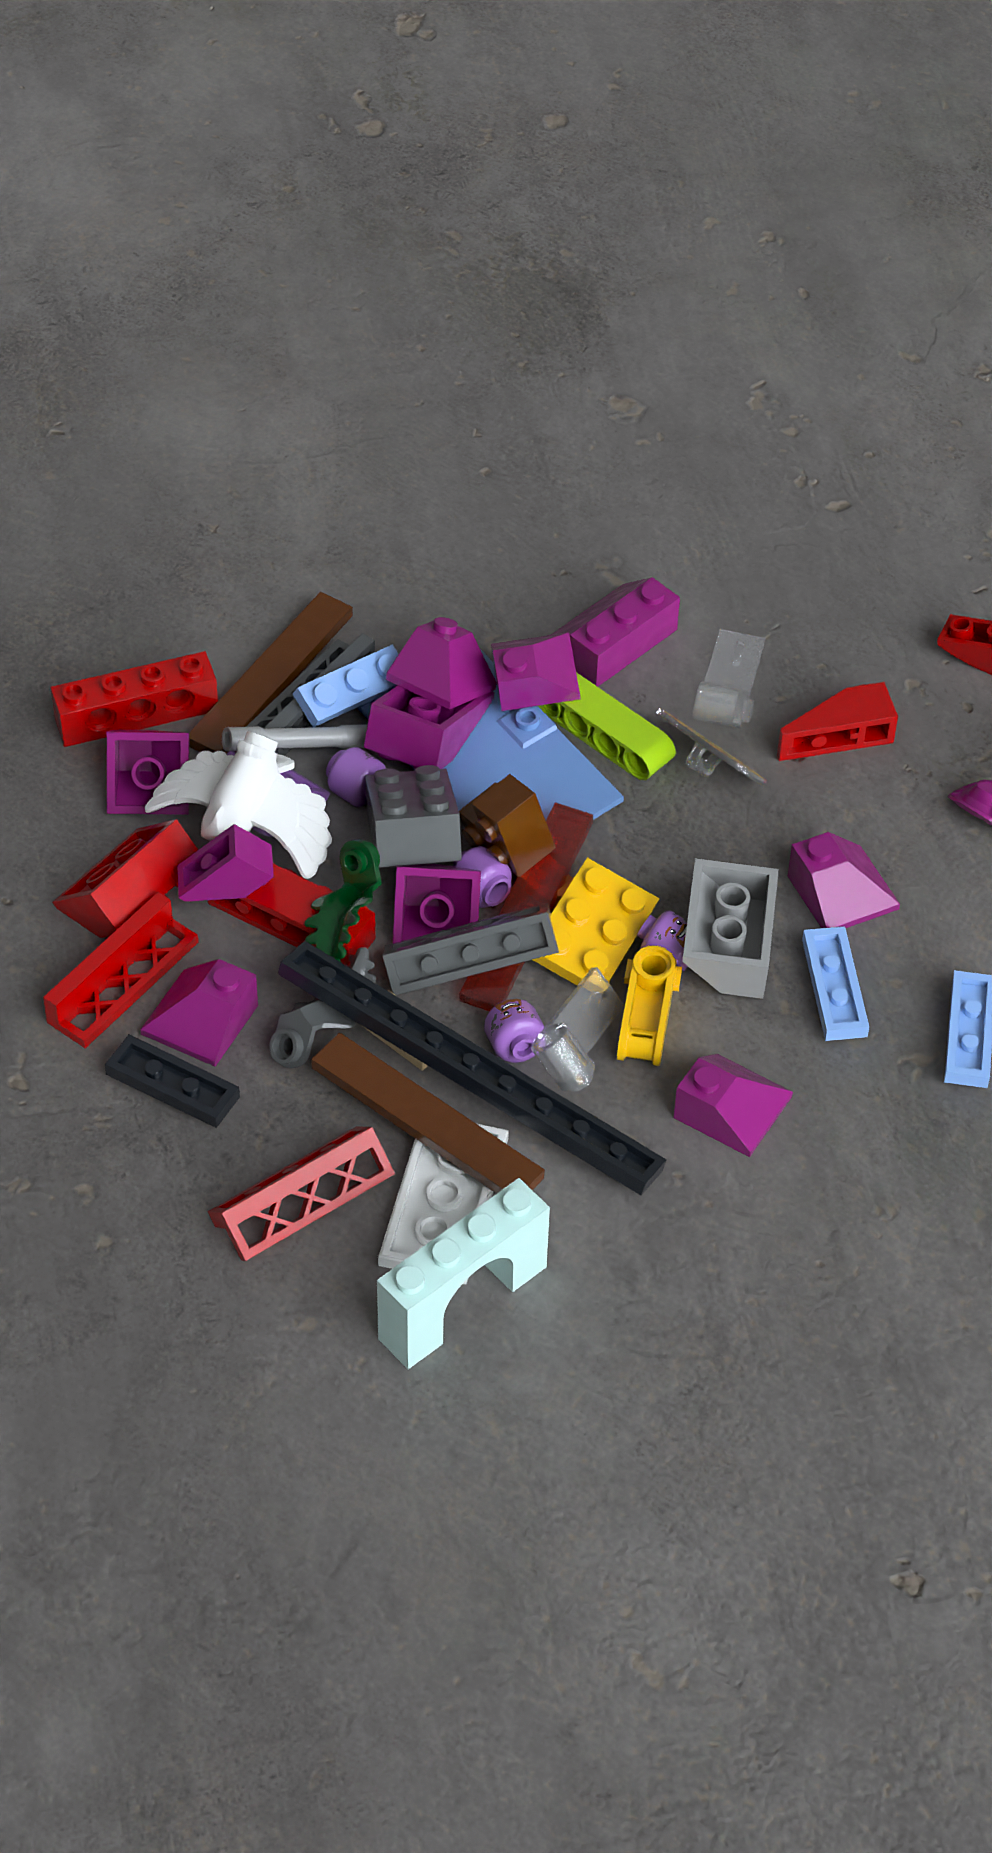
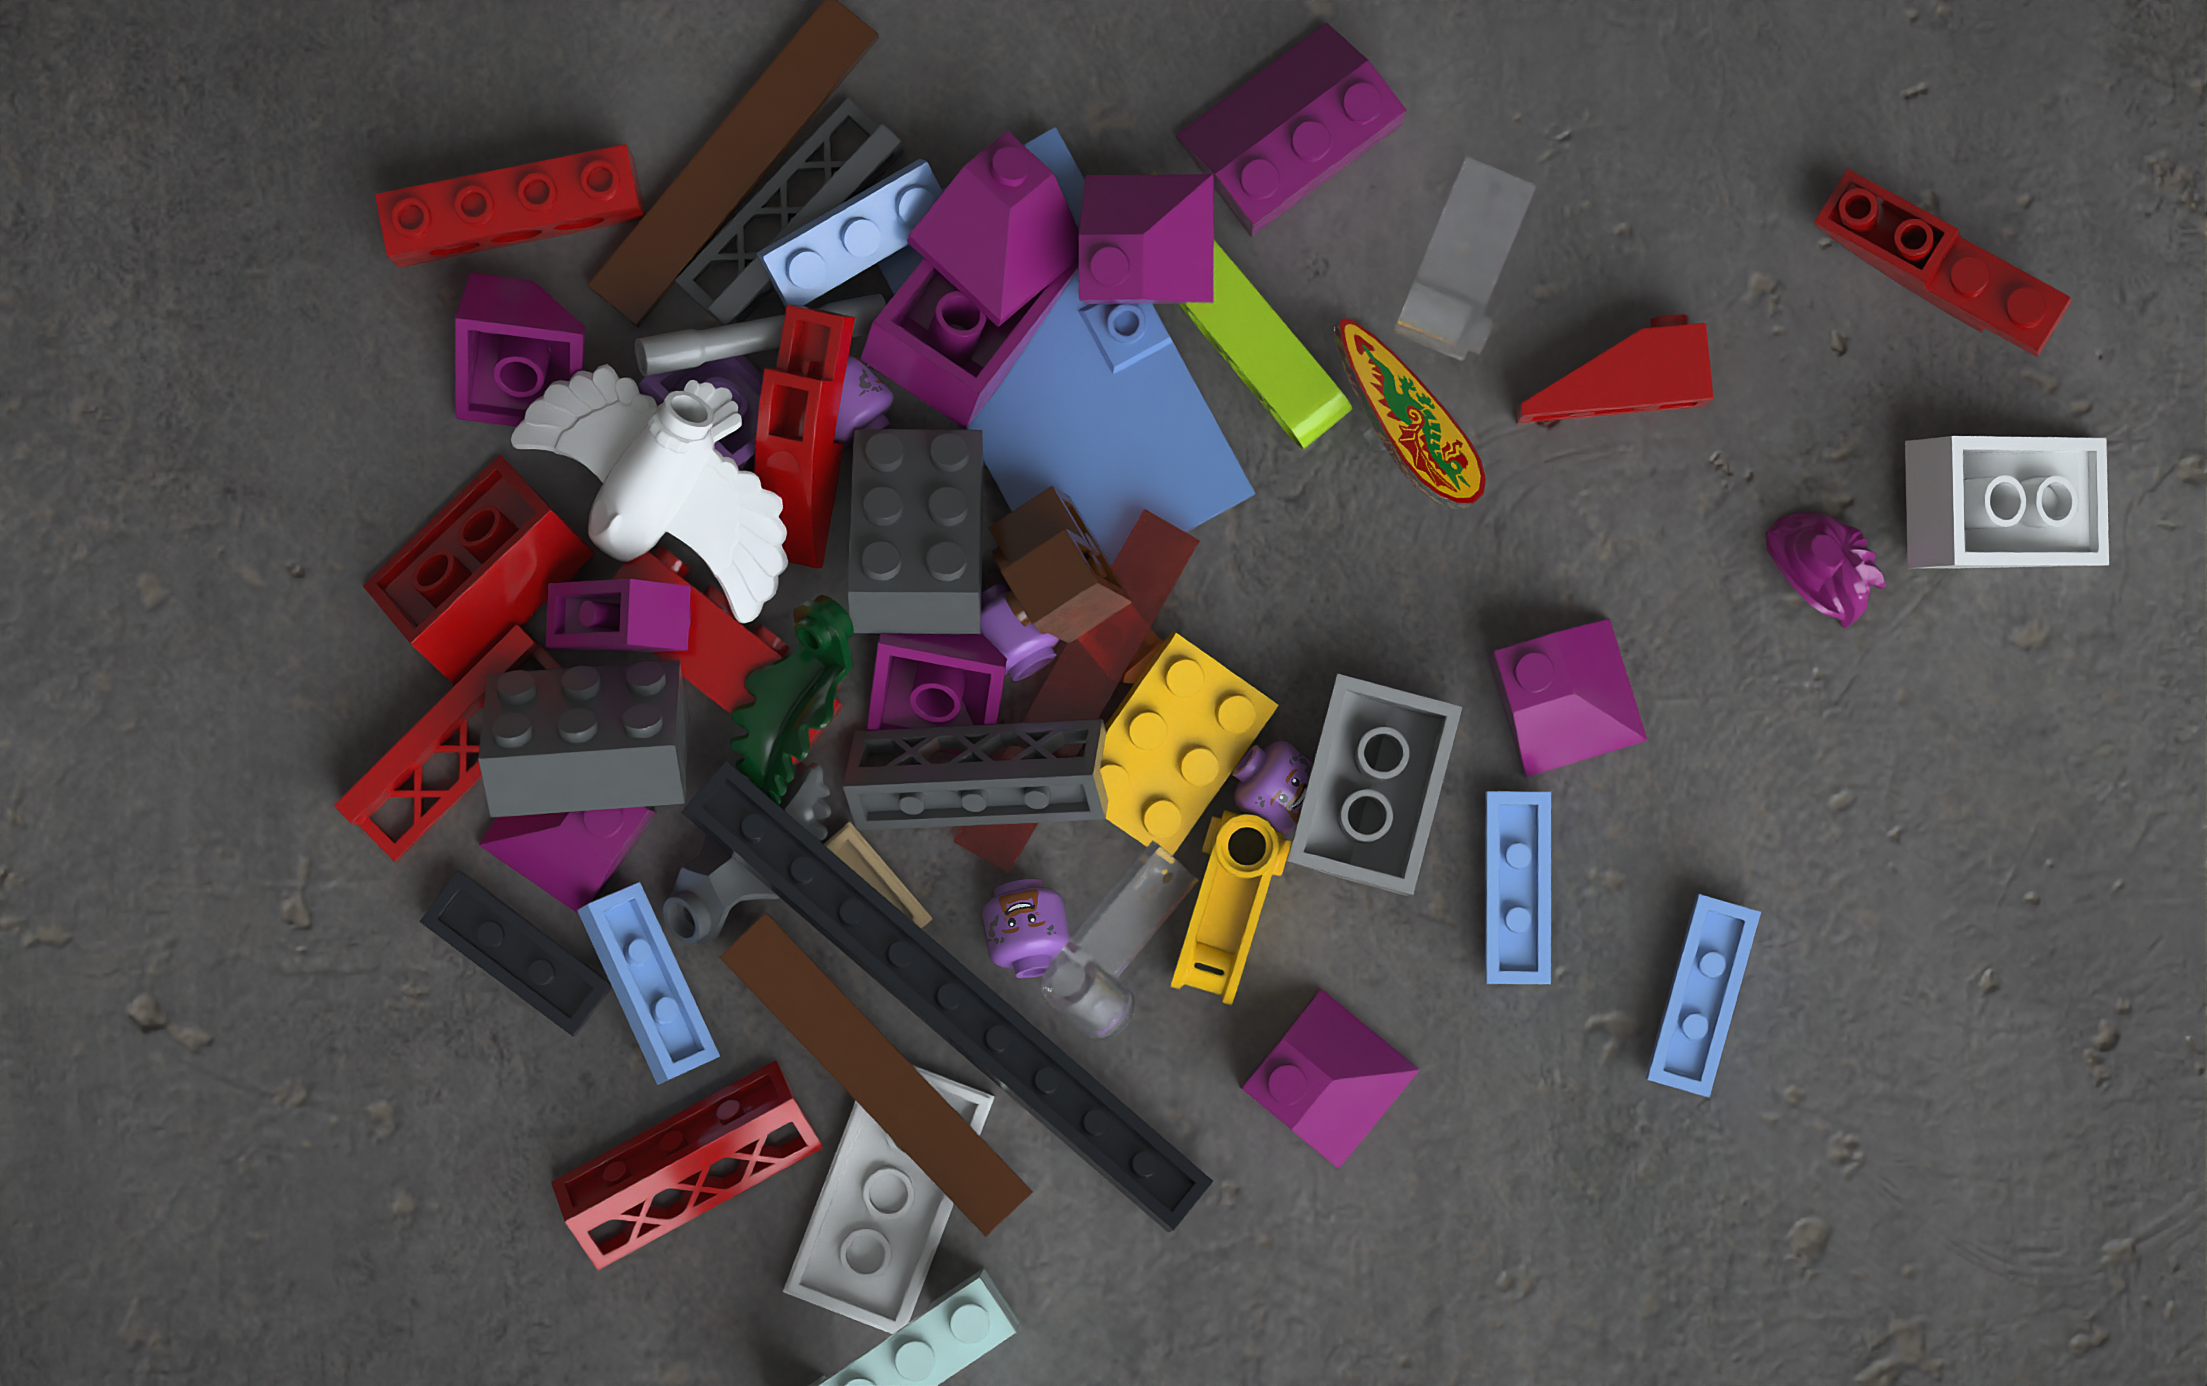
camera: 10 degrees right, 35 degrees up
(210, 931) = (584, 738): none -> dark grey brick
(264, 1086) = (648, 983): none -> light blue plate
(330, 770) = (798, 427): none -> red slope

